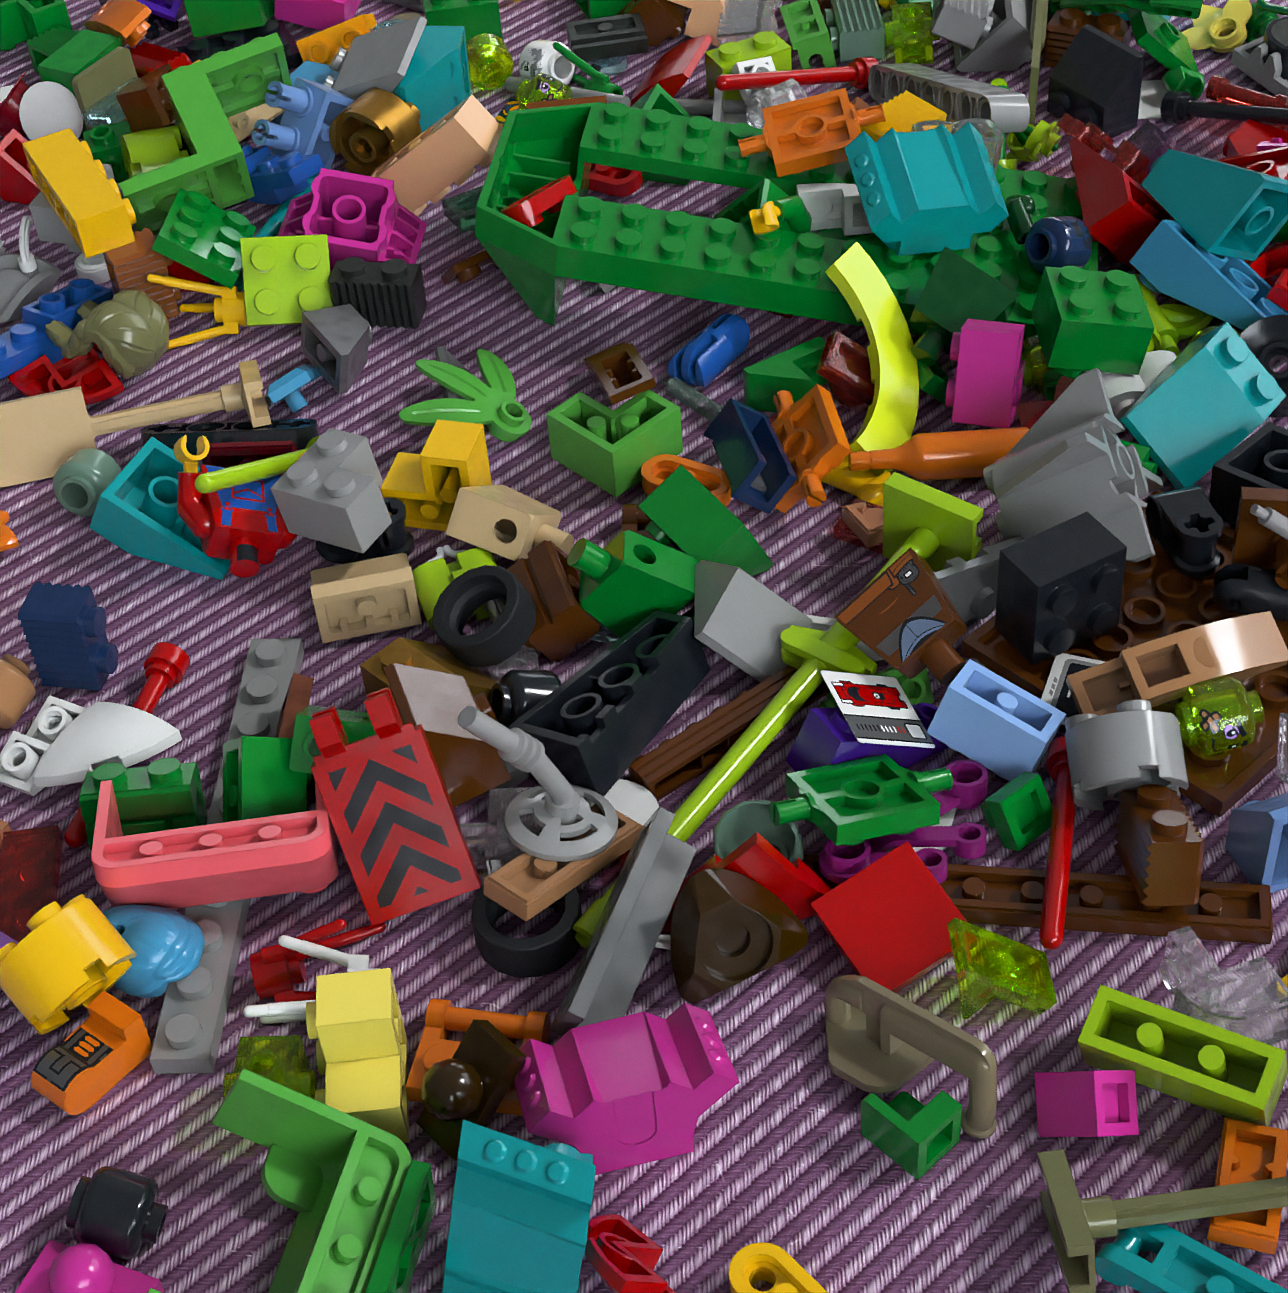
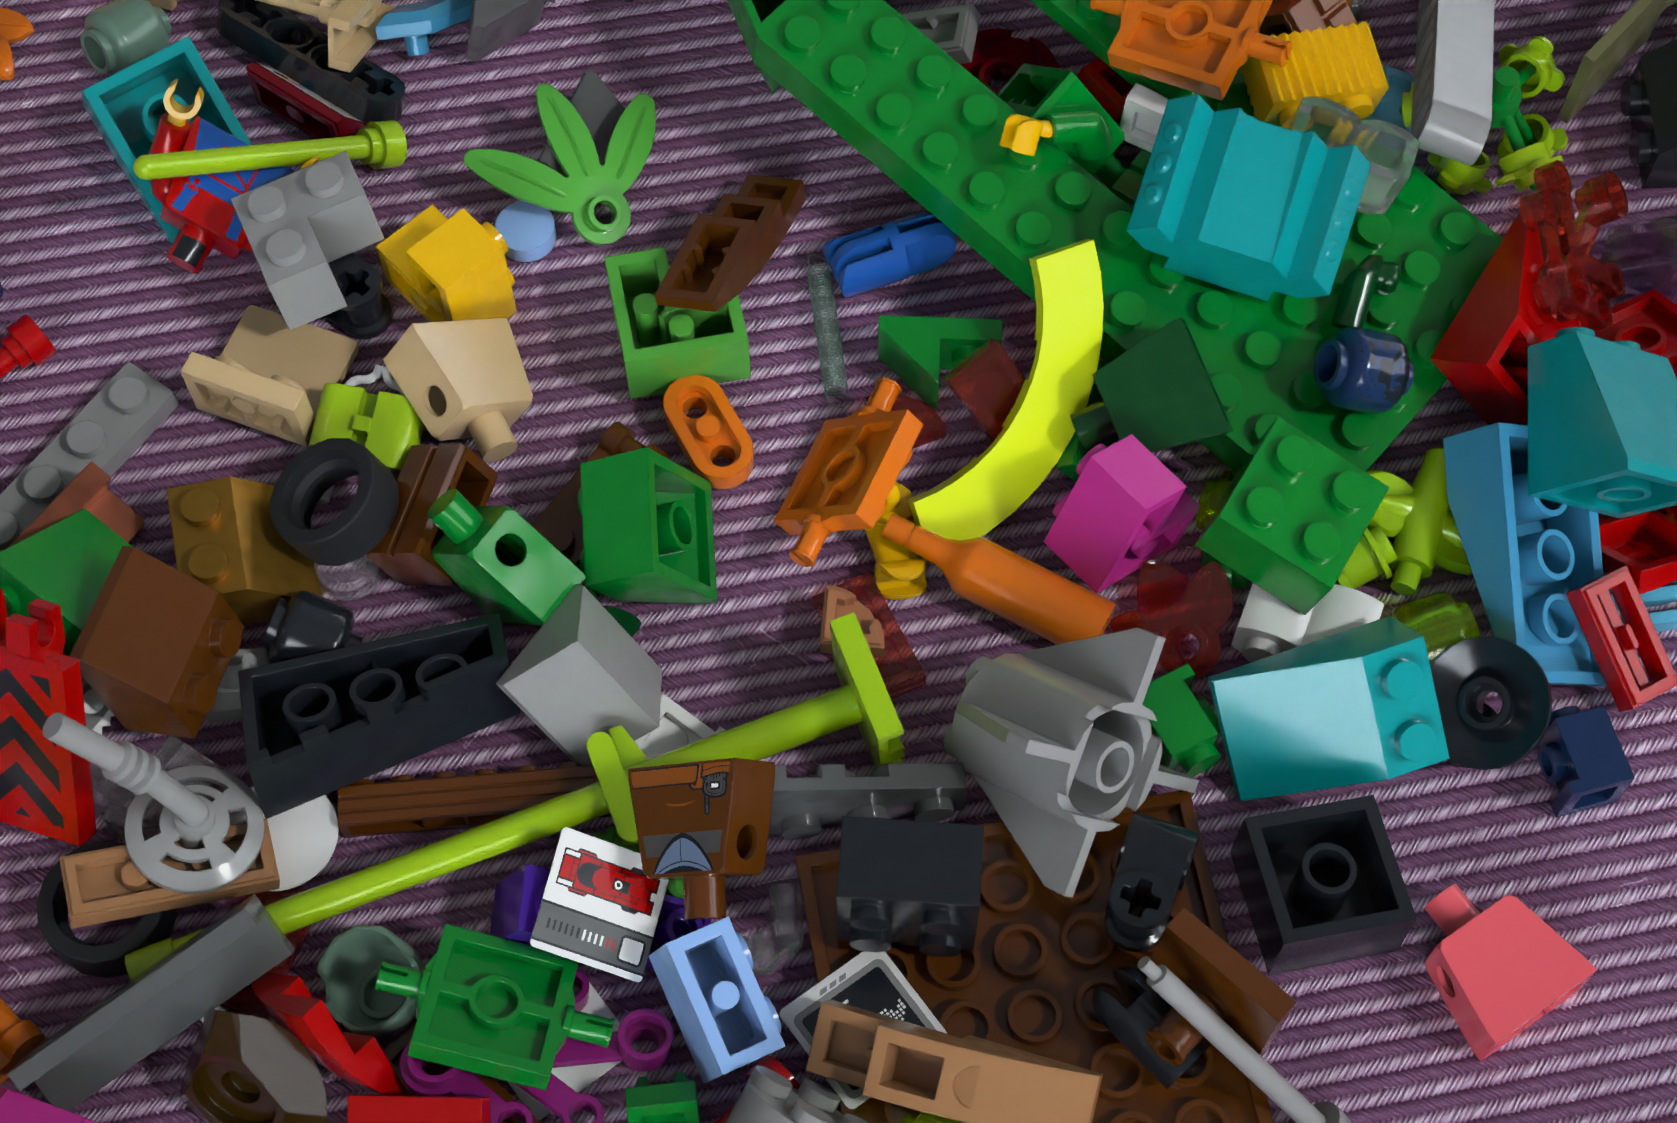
camera: 30 degrees right, 20 degrees up
(751, 456) = (789, 446): dark blue window -> none

